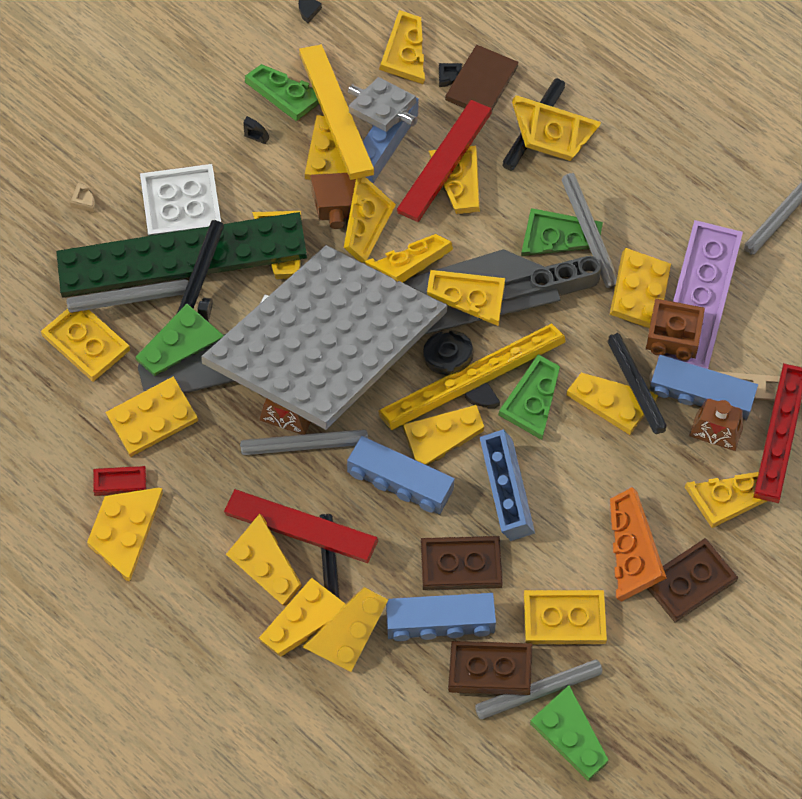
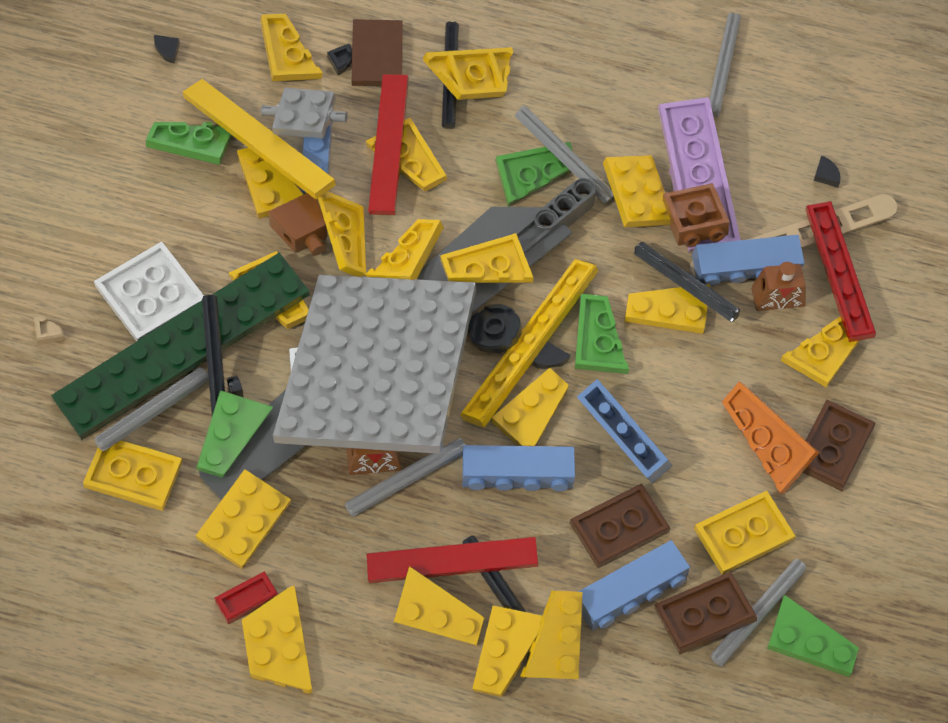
camera: 30 degrees left, 0 degrees up
(255, 130) = (185, 191): black tile -> none

